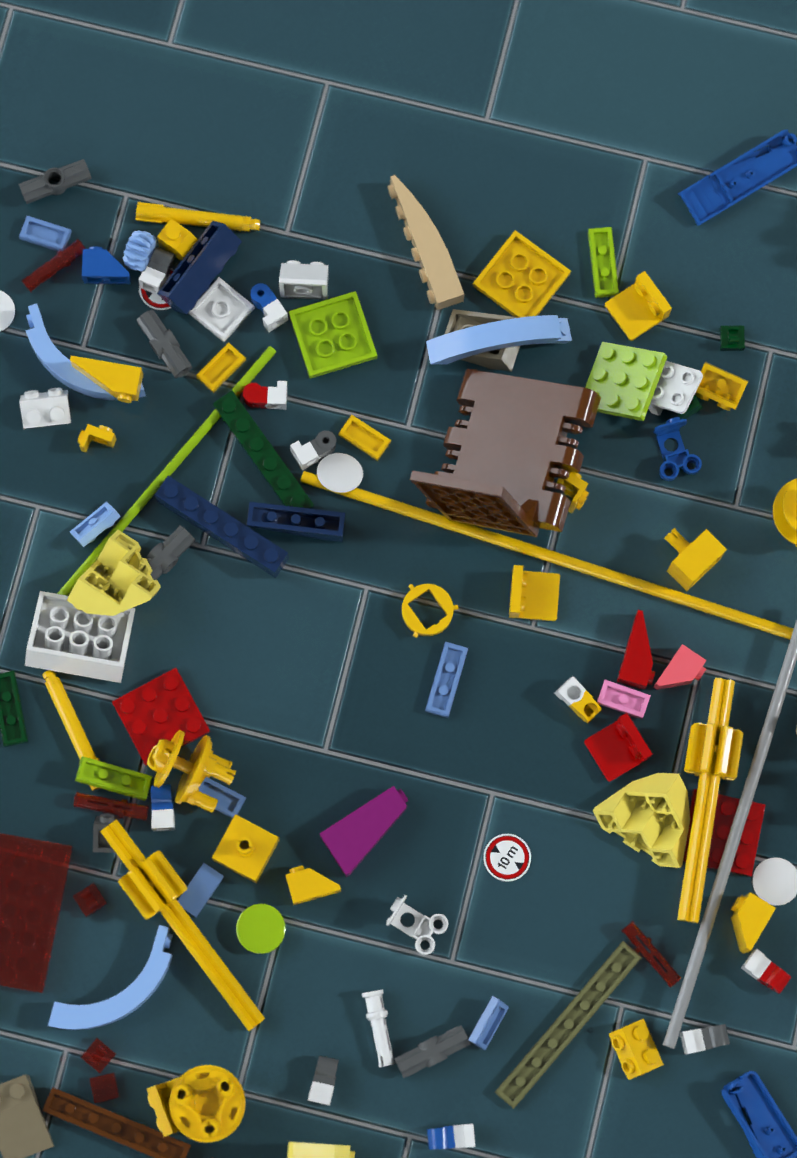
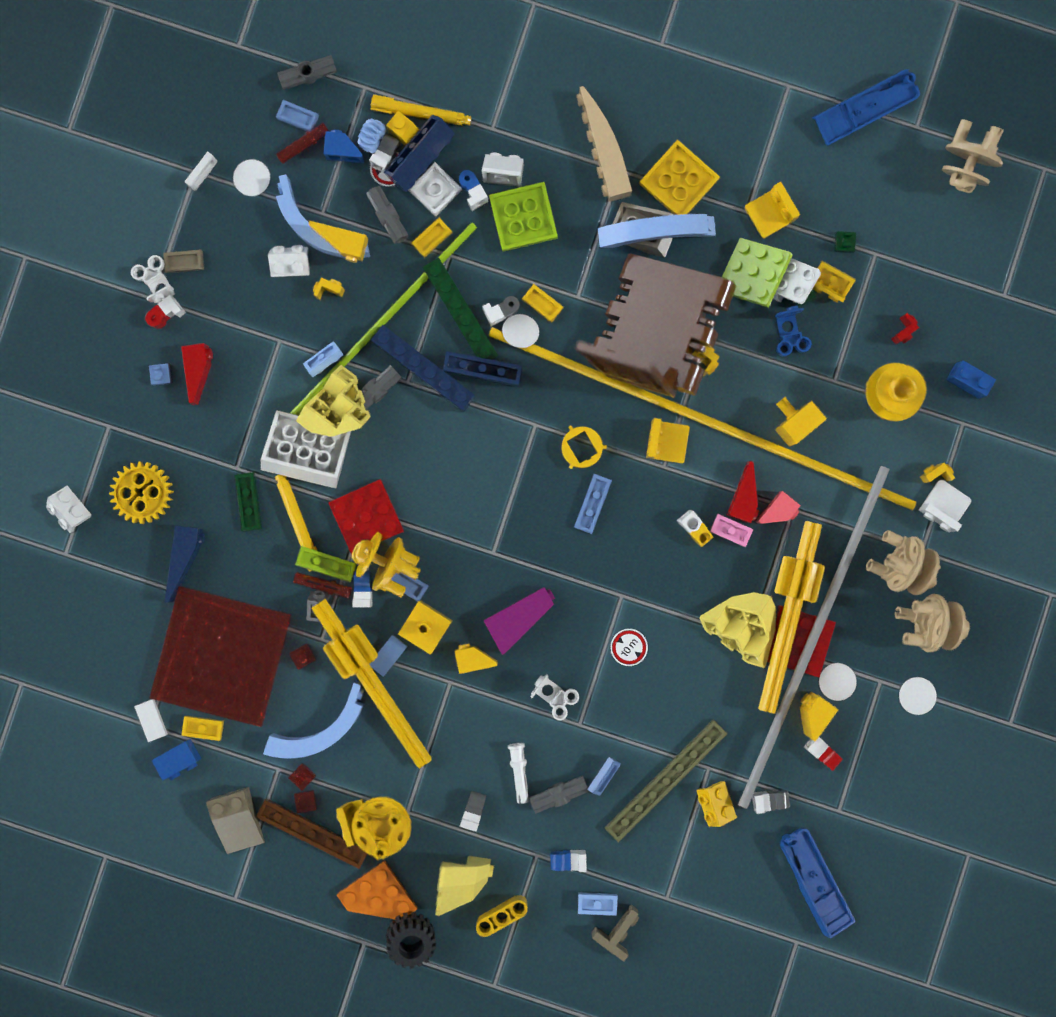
camera: 15 degrees right, 10 degrees up
(260, 928) = (433, 689): lime tile -> none
(266, 397) = (465, 264): leg -> none
(603, 262) = (746, 171): lime tile -> none
(618, 748) = (723, 569): red bracket -> none
(631, 932) = (748, 750): clear red pin -> none

